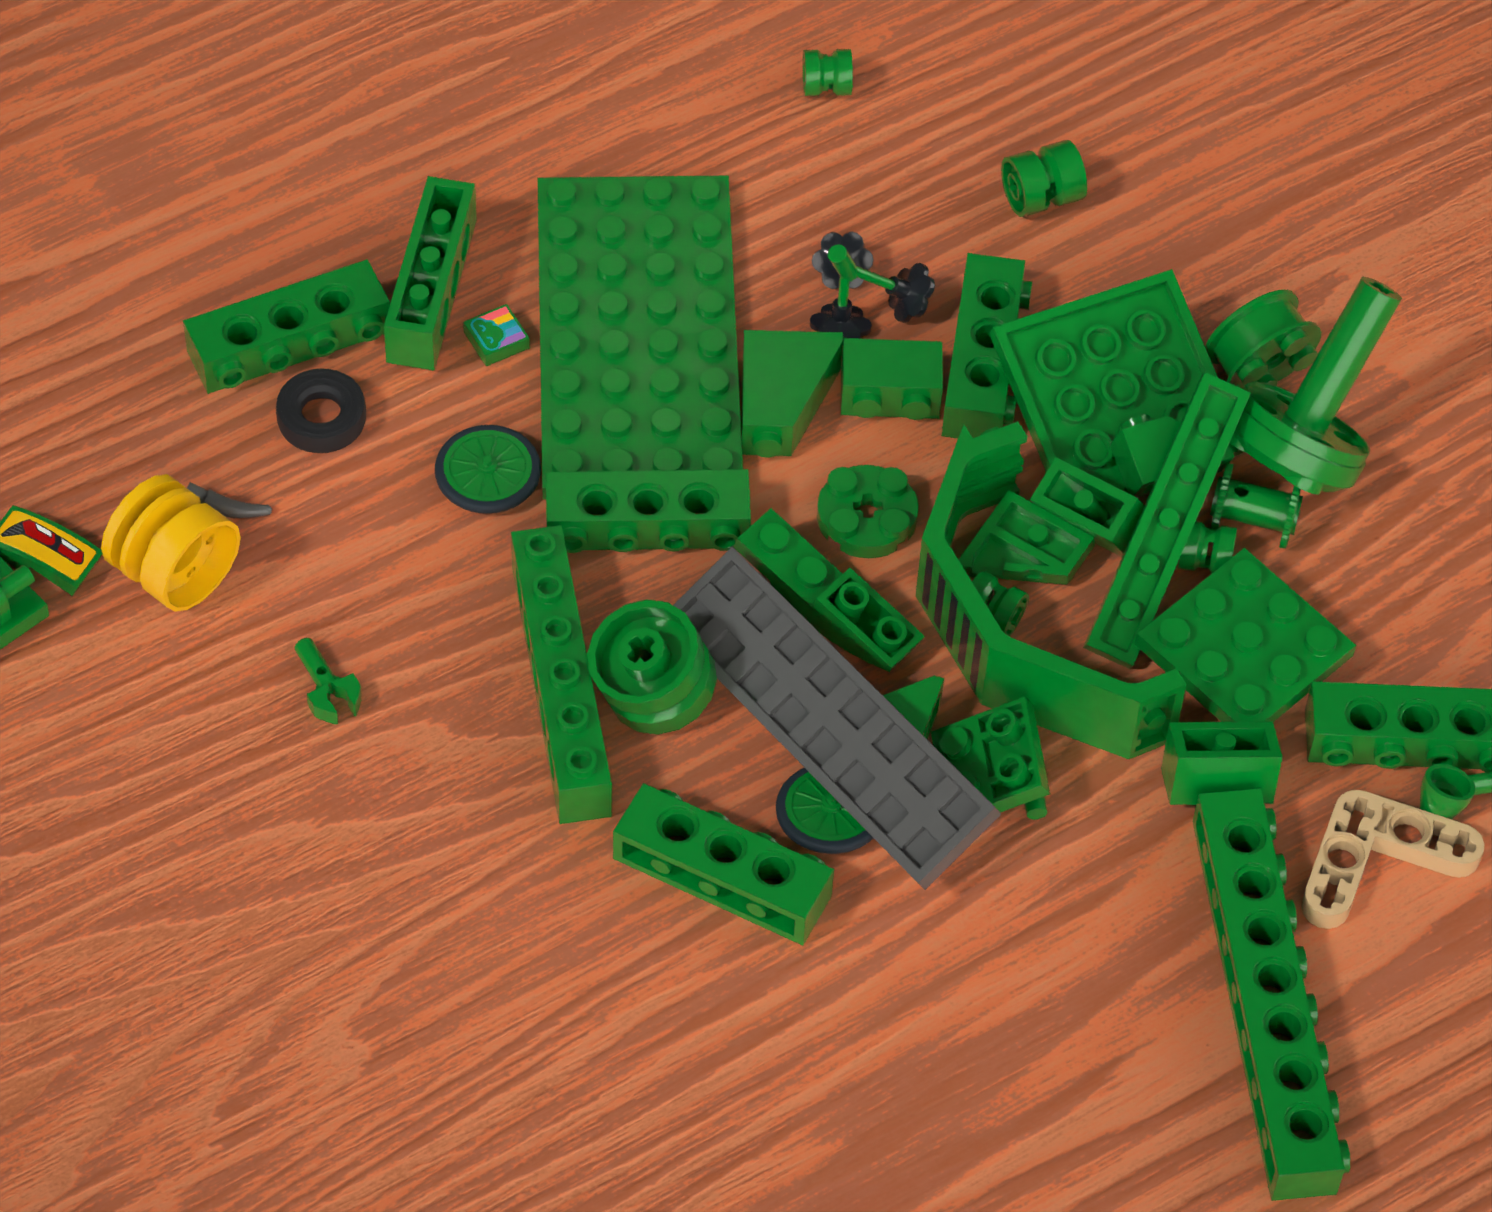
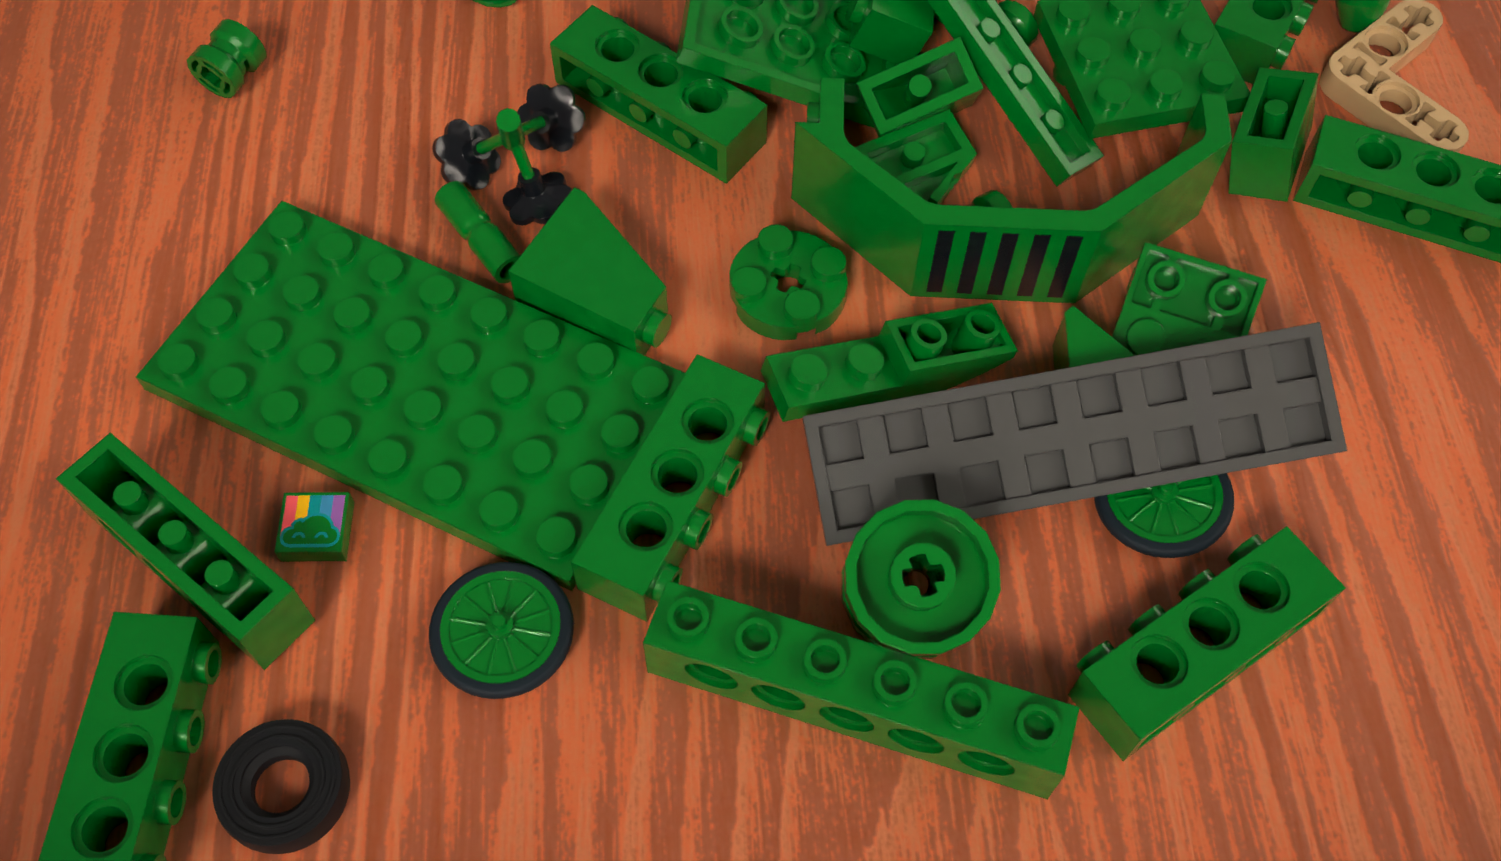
camera: 60 degrees left, 5 degrees up
(787, 297) = (476, 227): none -> green piece
(891, 378) = (648, 180): green brick -> none

